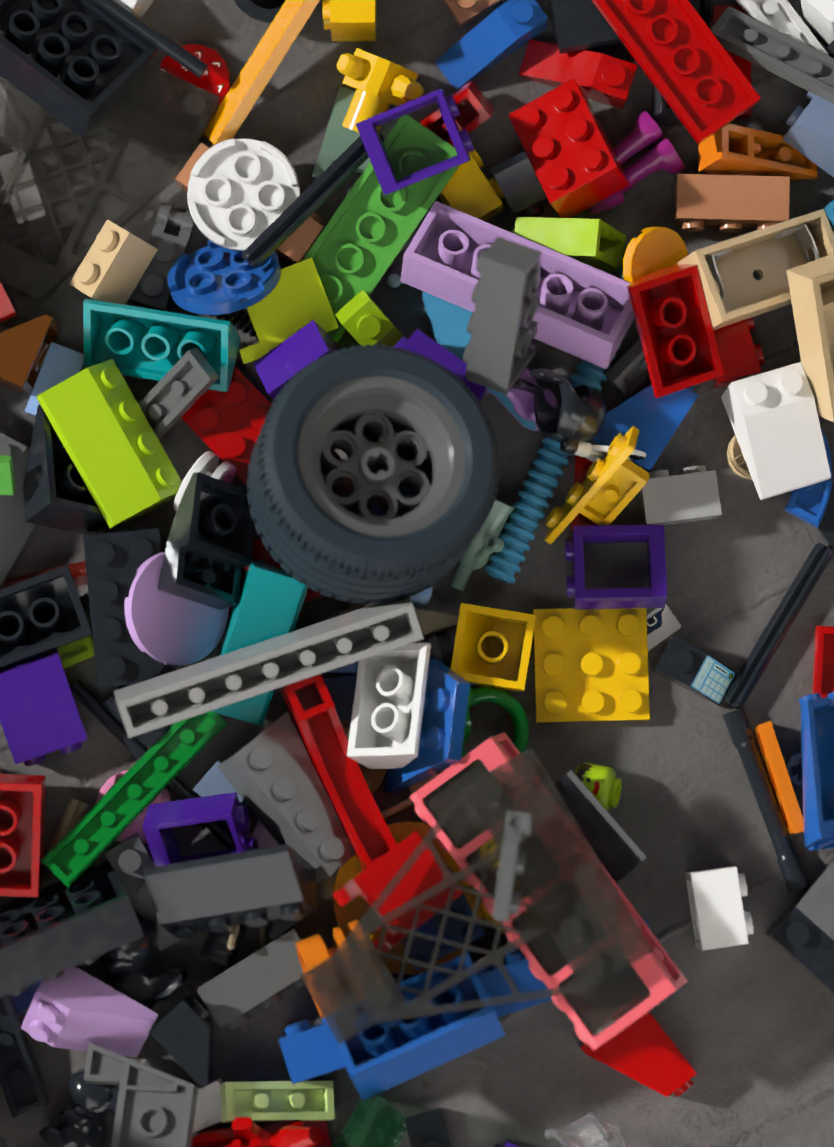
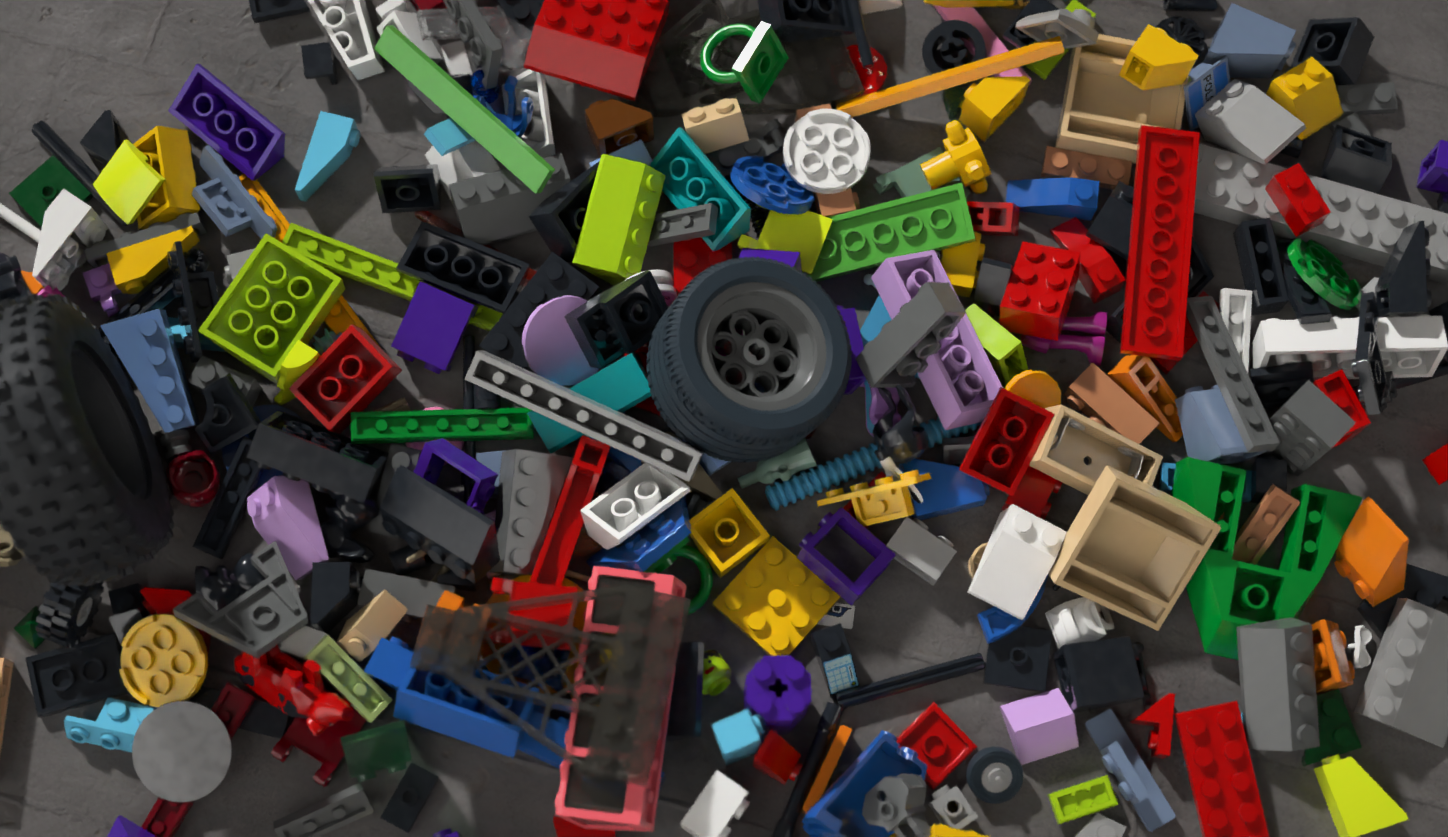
camera: 40 degrees right, 10 degrees down
(98, 166) = (757, 63): none -> green tile
(252, 1036) = (369, 624): none -> tan slope
(307, 203) = (854, 185): black axle -> none
(314, 30) = (953, 100): none -> clear green slope
(368, 322) = (833, 280): lime slope -> none
(378, 153) = (925, 188): dark purple window -> none
(512, 862) = (611, 650): dark grey hinge -> none
(683, 826) = (738, 736): none -> medium azure brick
(705, 754) = (783, 678): none -> dark purple brick
(729, 810) = (777, 758): none -> red slope

